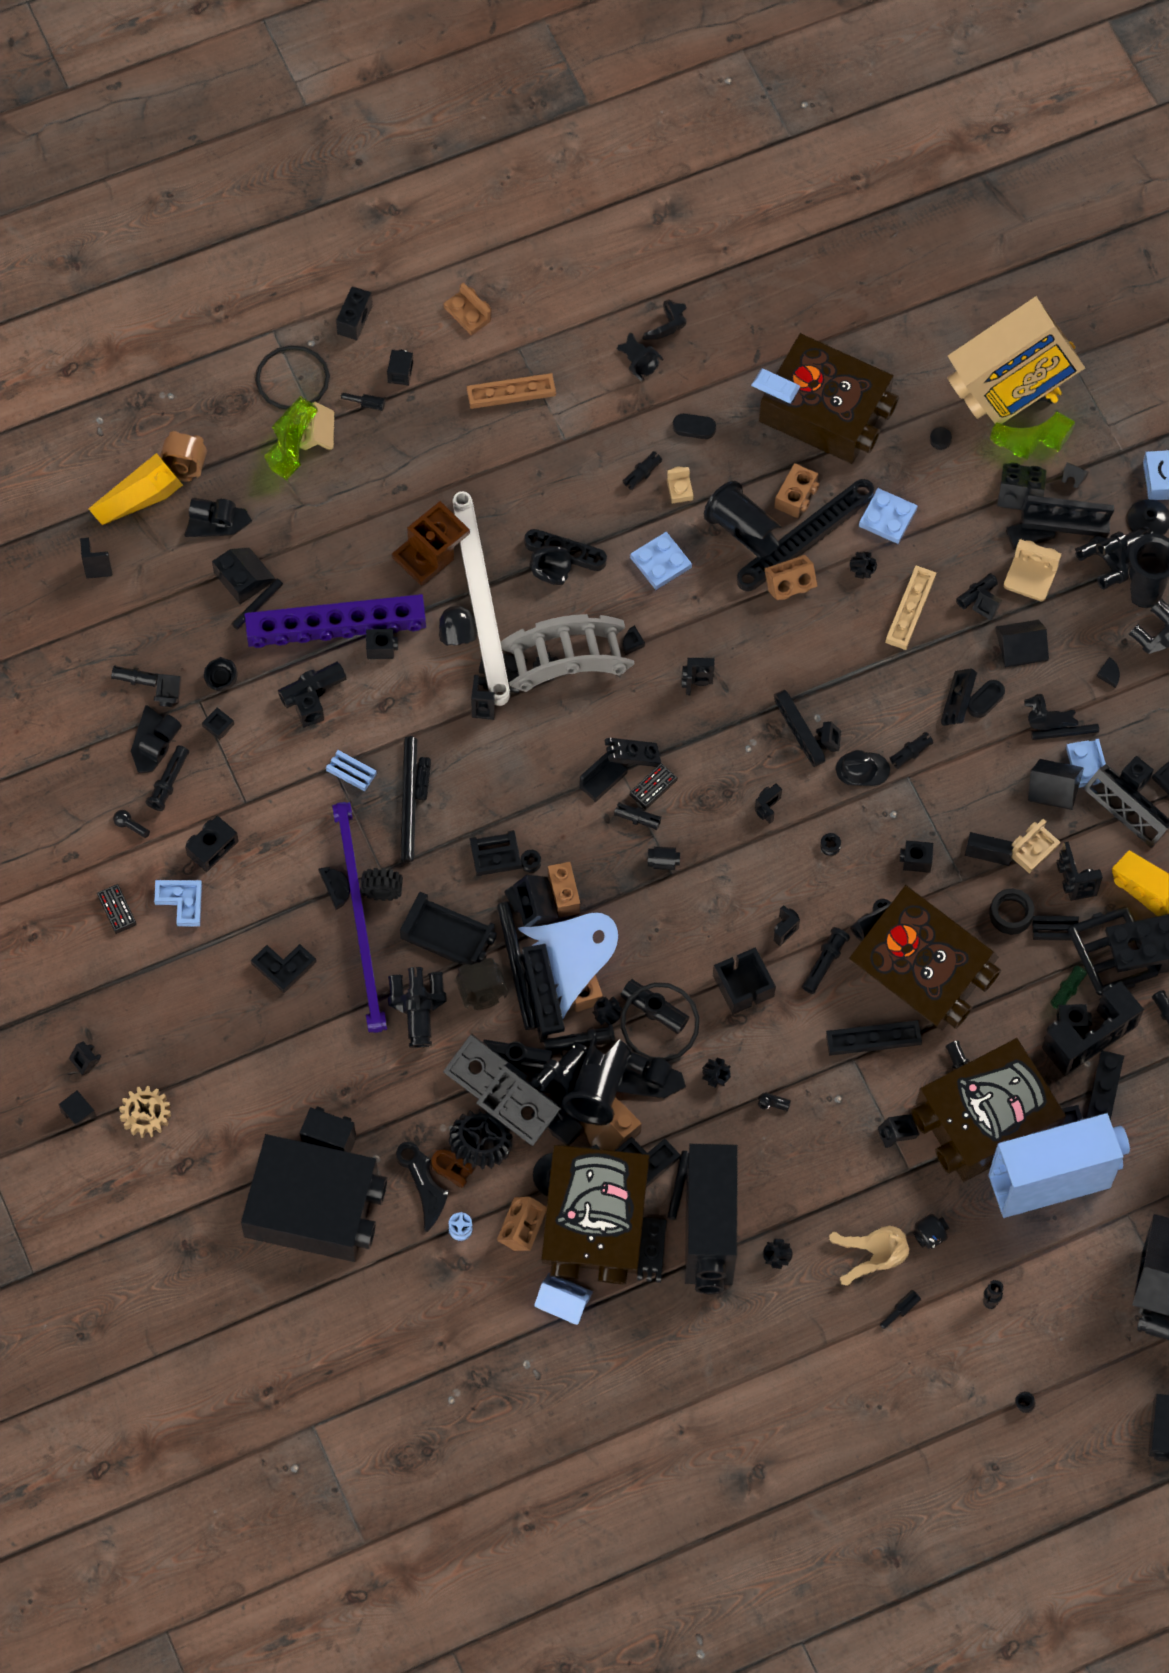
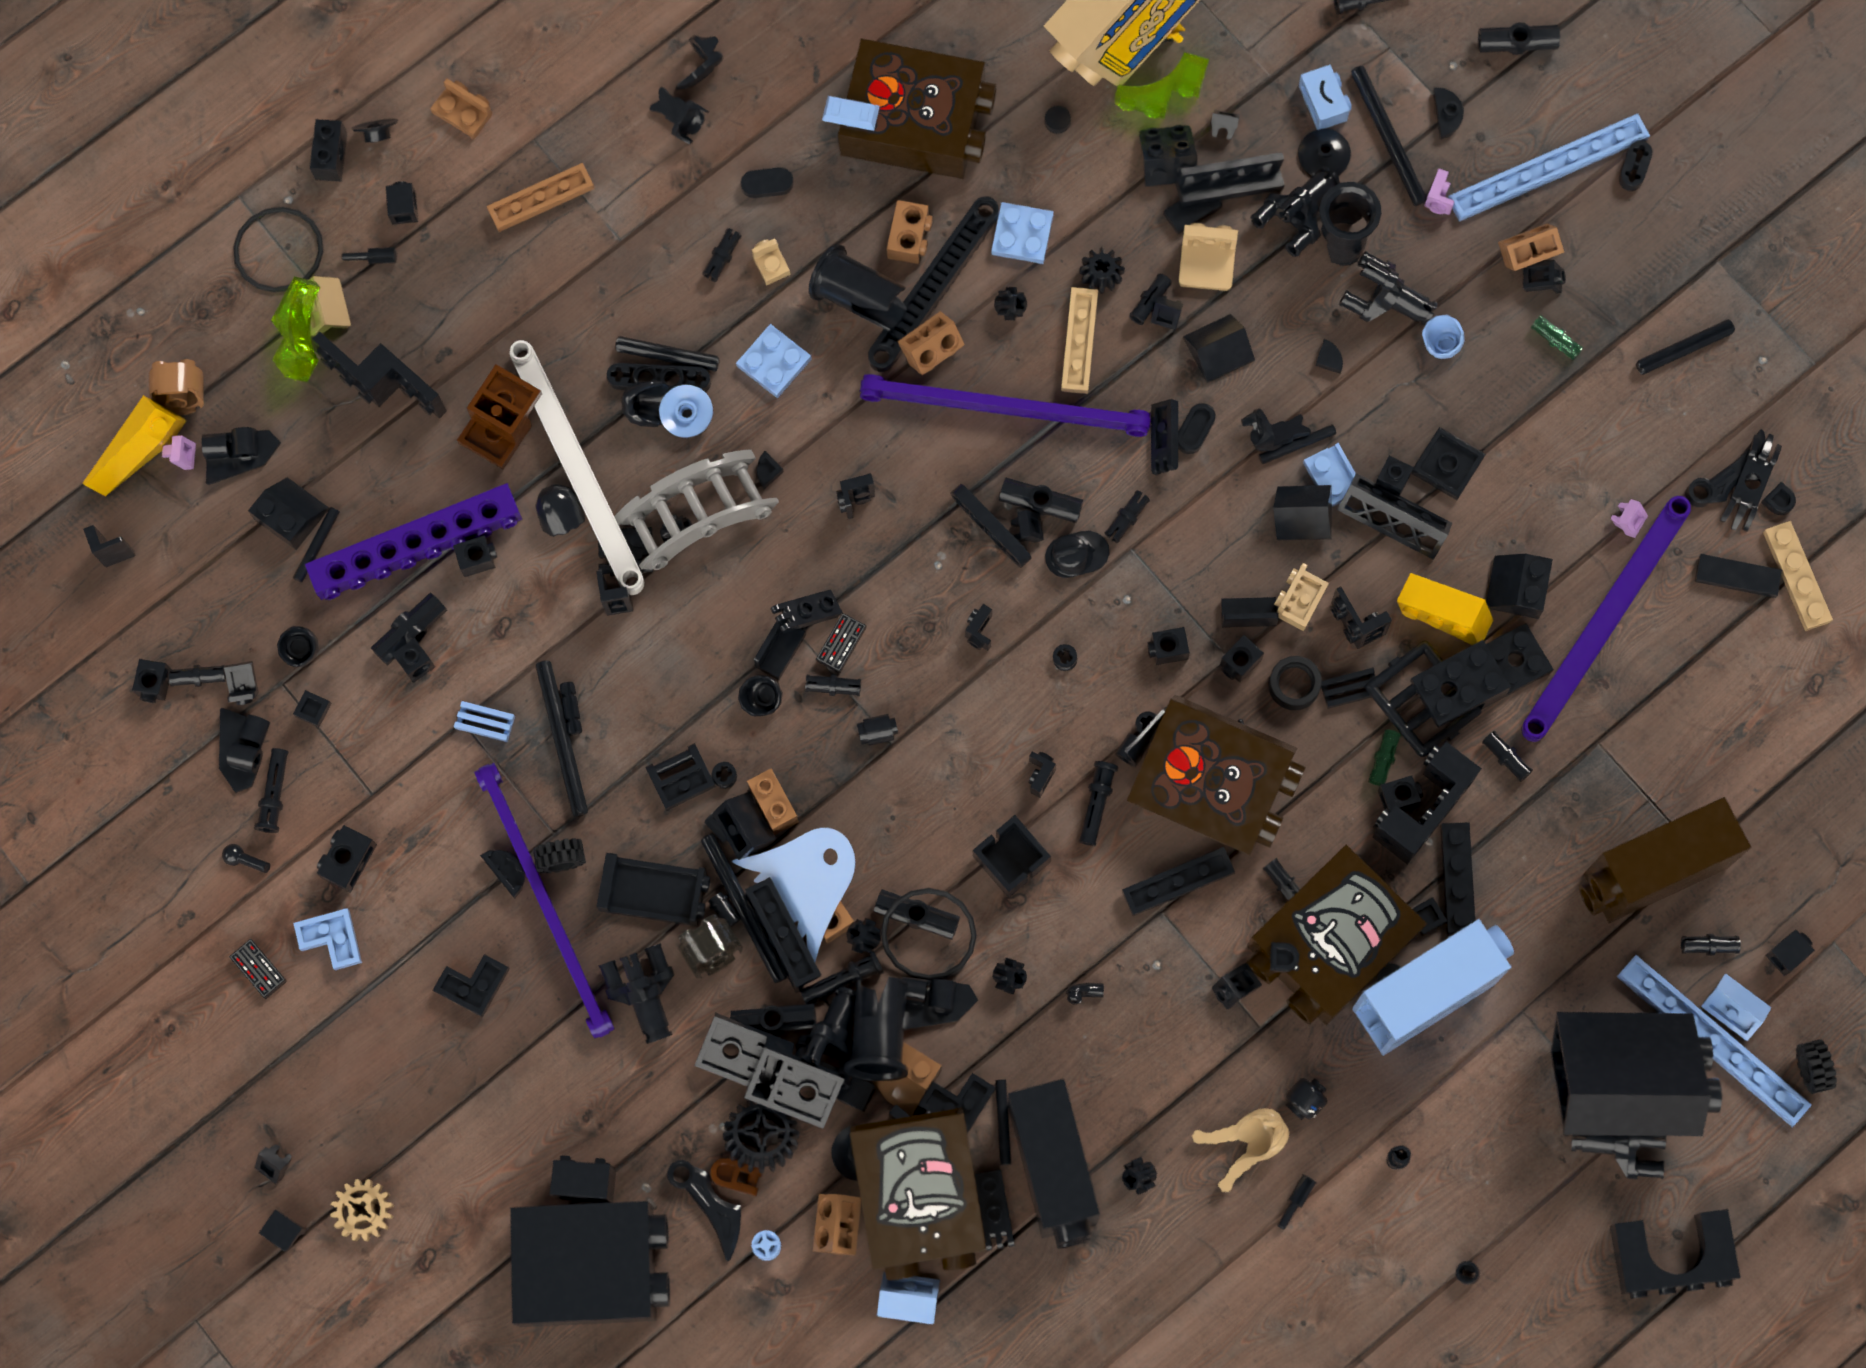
camera: 10 degrees left, 10 degrees up
(97, 661) = (145, 670): none -> black brick
(171, 506) = (180, 452): none -> lavender tile
(345, 488) = (379, 376): none -> black bracket
(395, 308) = (375, 130): none -> black piece
(499, 957) = (723, 909): none -> black pin
(577, 532) = (667, 353): none -> black axle
(577, 570) = (681, 399): none -> light blue dish
(577, 807) = (760, 695): none -> black hair
(857, 726) = (1058, 504): none -> black piece
(936, 680) = (1134, 423): none -> dark purple piece
(941, 1109) = (1283, 957): none -> black tile
(944, 559) = (1104, 262): none -> black gear
(979, 875) = (1244, 648): none -> black brick

